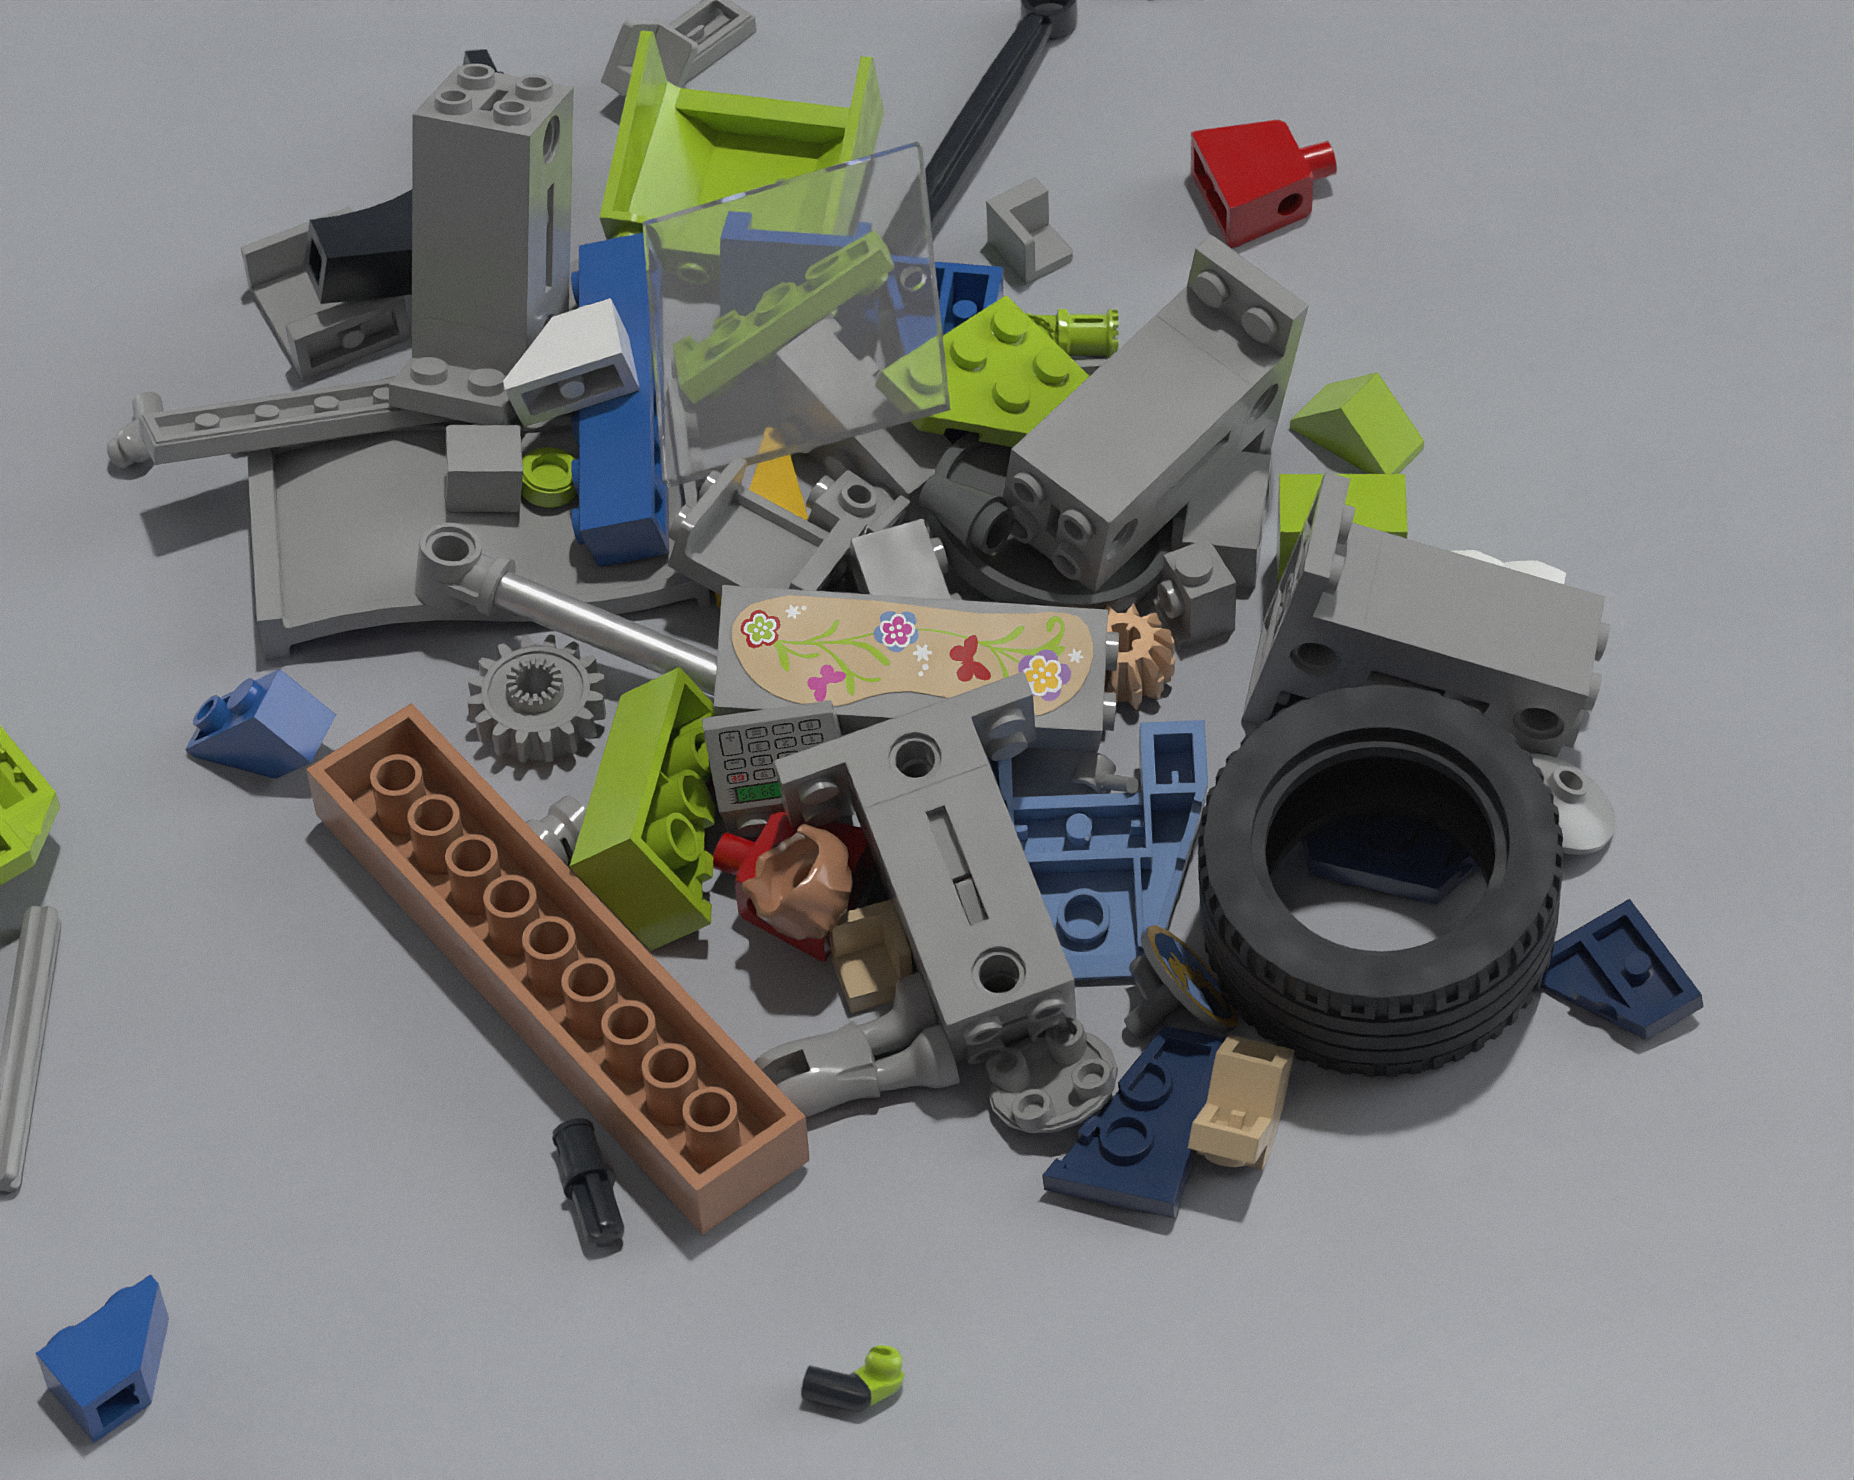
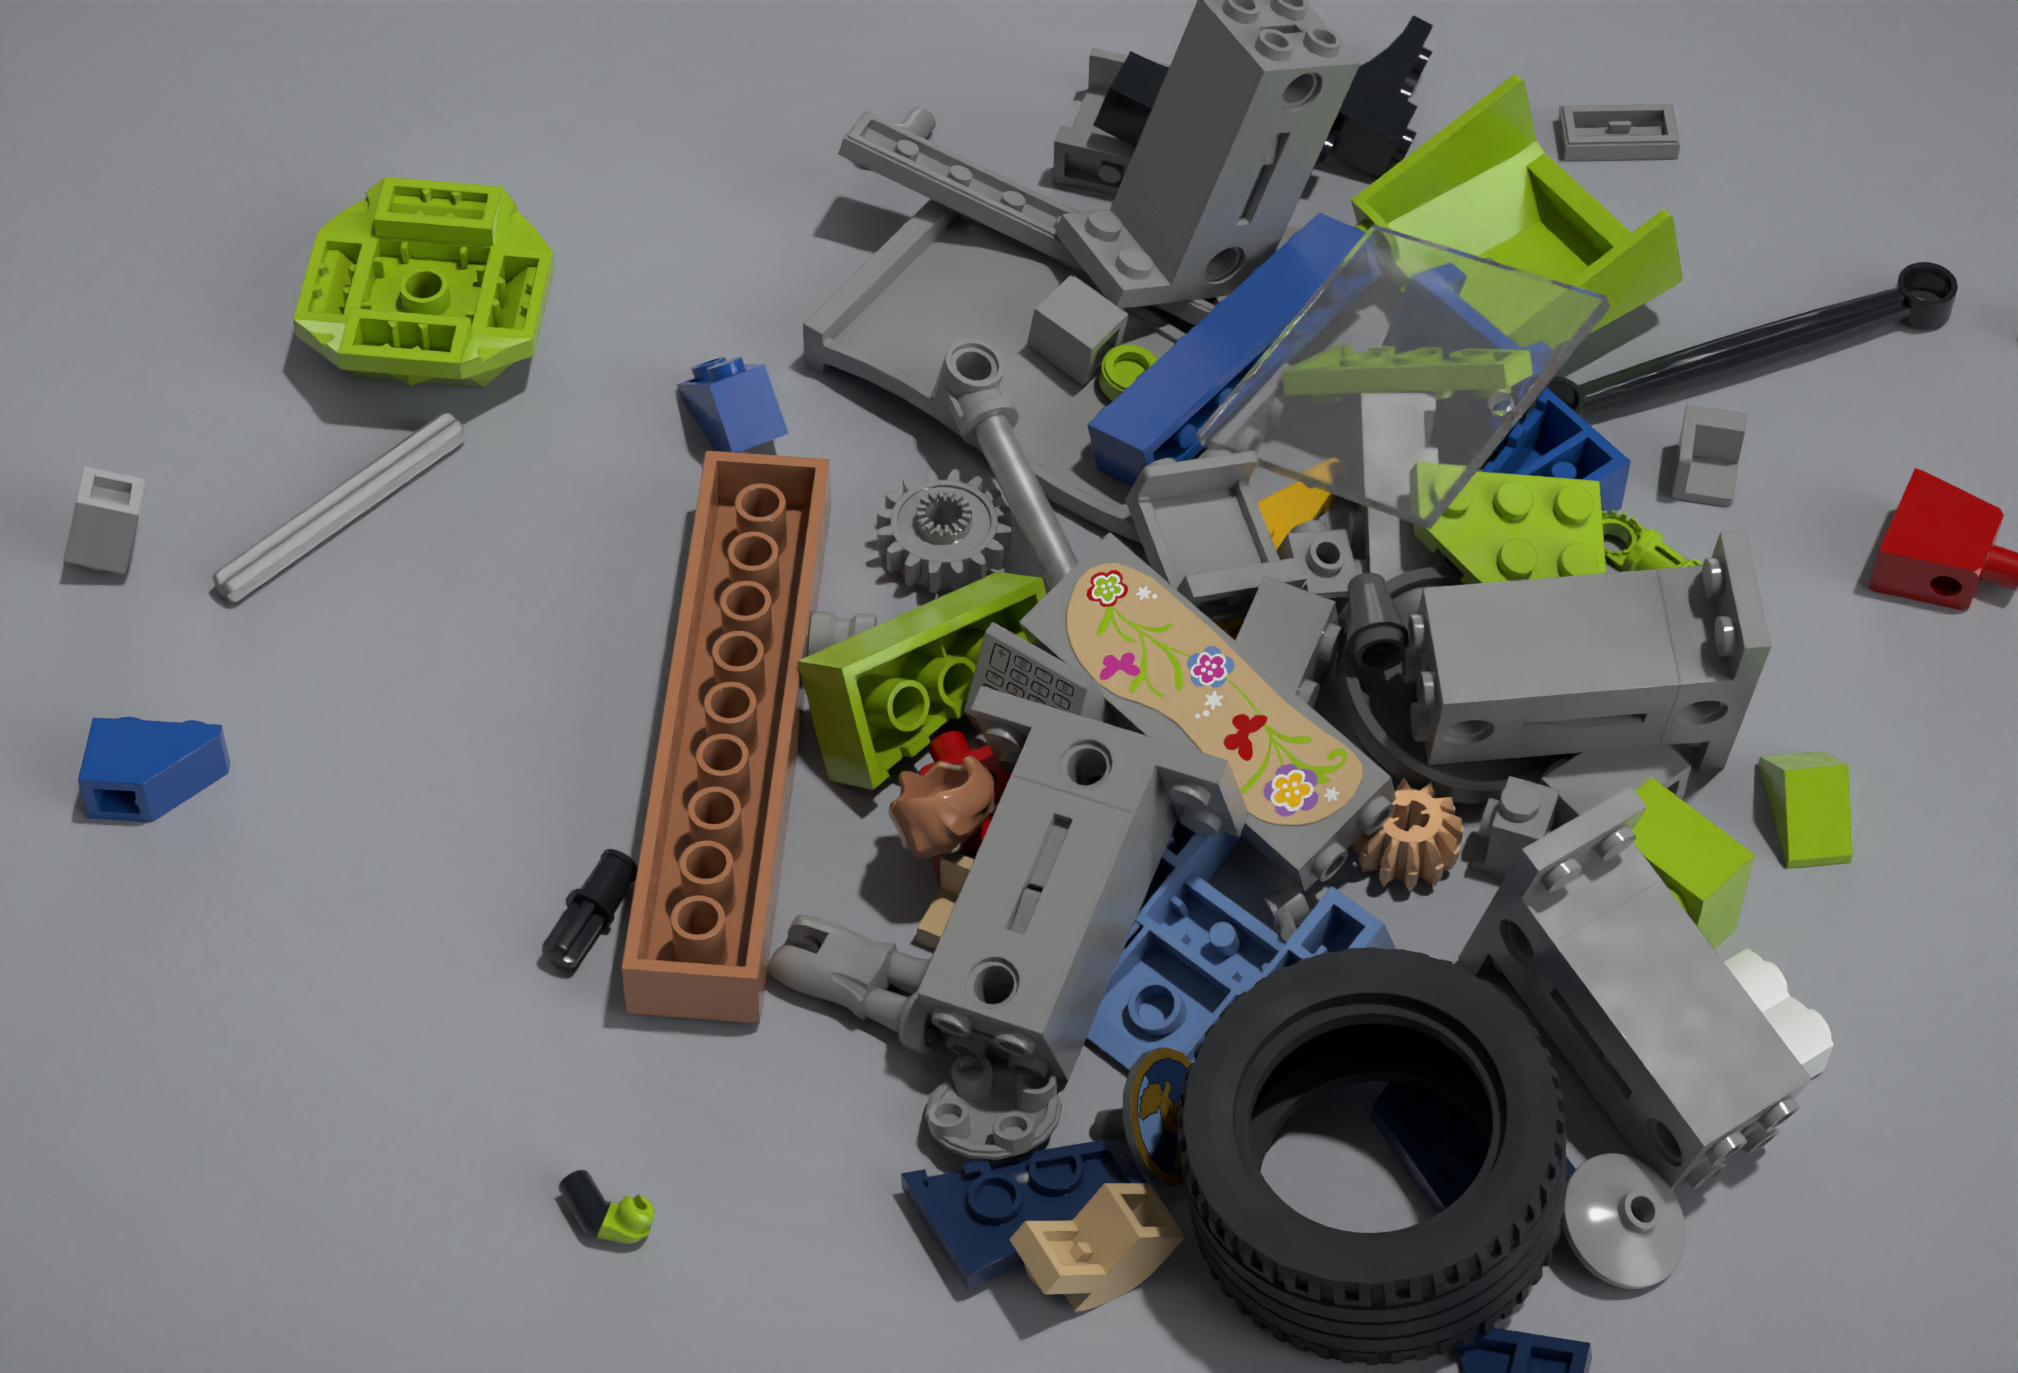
camera: 40 degrees right, 0 degrees up
(573, 365) = (1205, 294): white slope -> none
(675, 50) = (1560, 115): light grey panel -> none

